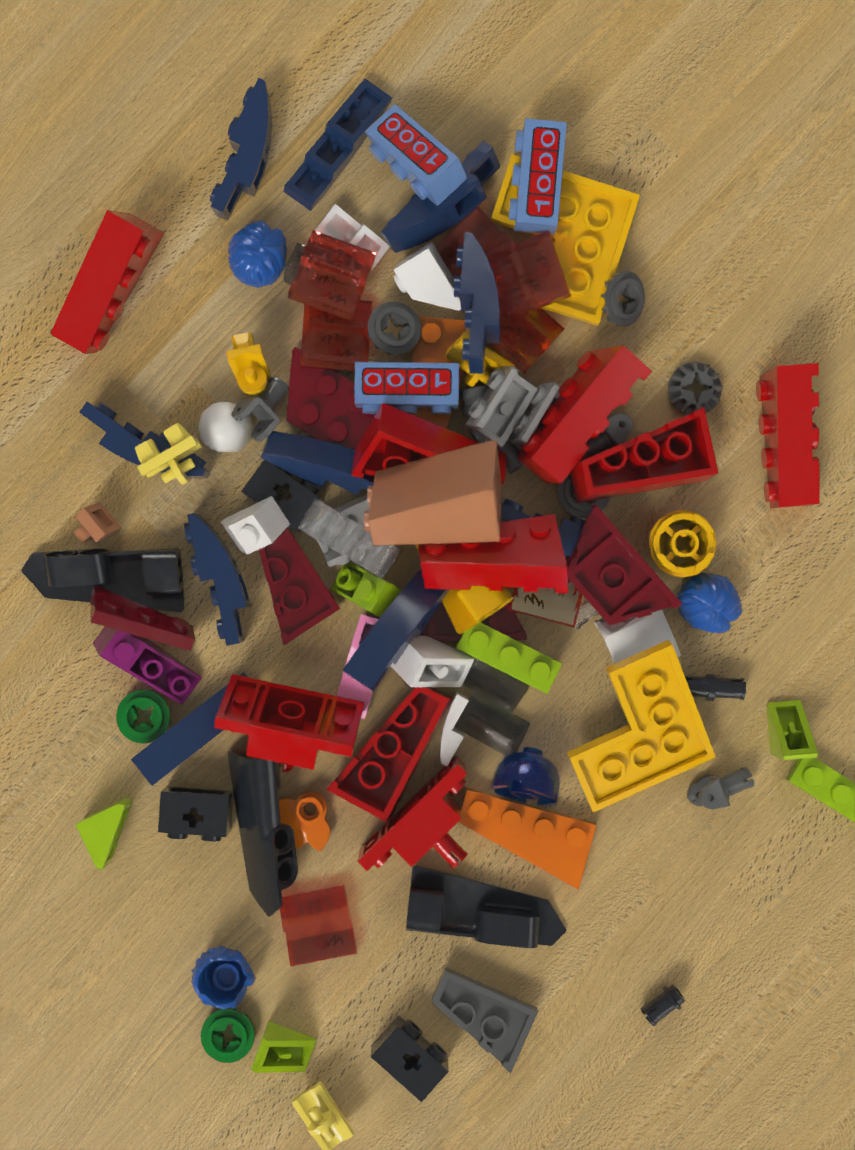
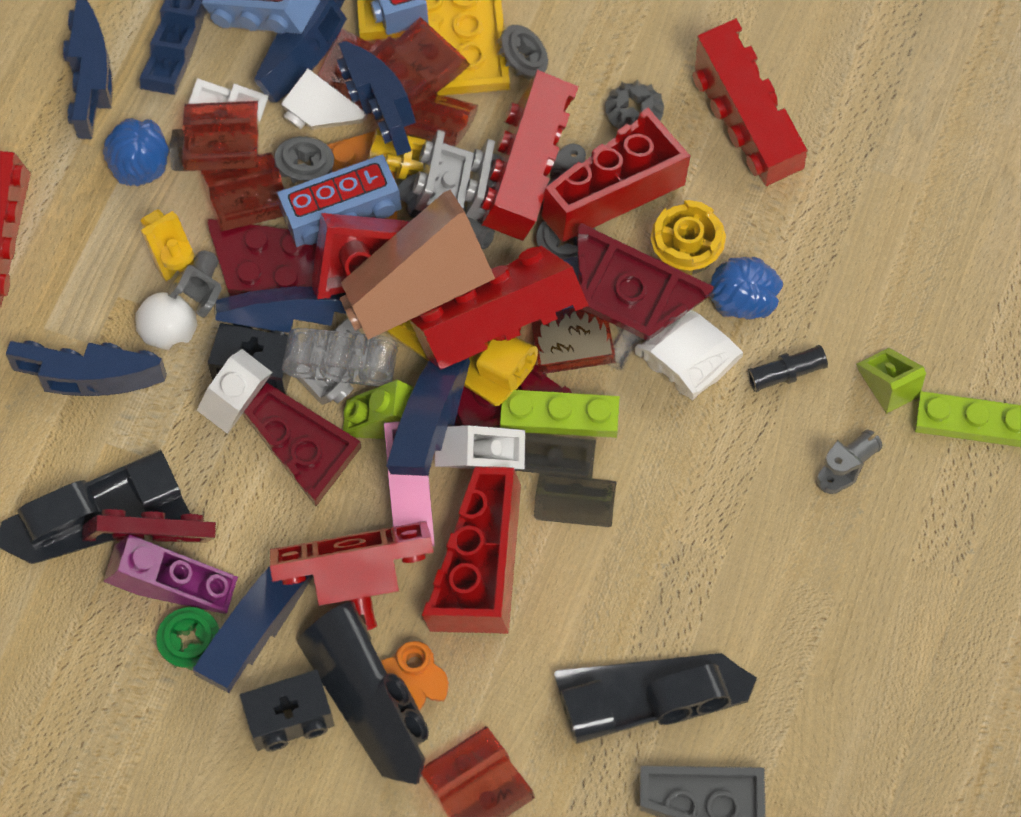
camera: 20 degrees left, 25 degrees down
(96, 524) = (61, 463): nougat tile -> none
(102, 831) = (188, 770): lime slope -> none
(181, 446) = (122, 353): light yellow hips -> none
(216, 563) = (217, 456): dark blue slope -> none
(422, 823) = (541, 611): red brick -> none
(450, 736) = (534, 517): white slope -> none
(527, 777) = (637, 529): clear blue cylinder -> none
(533, 833) = (681, 588): orange wing -> none
(661, 732) = (757, 426): yellow plate -> none
(663, 1004) = (900, 708): black pin -> none

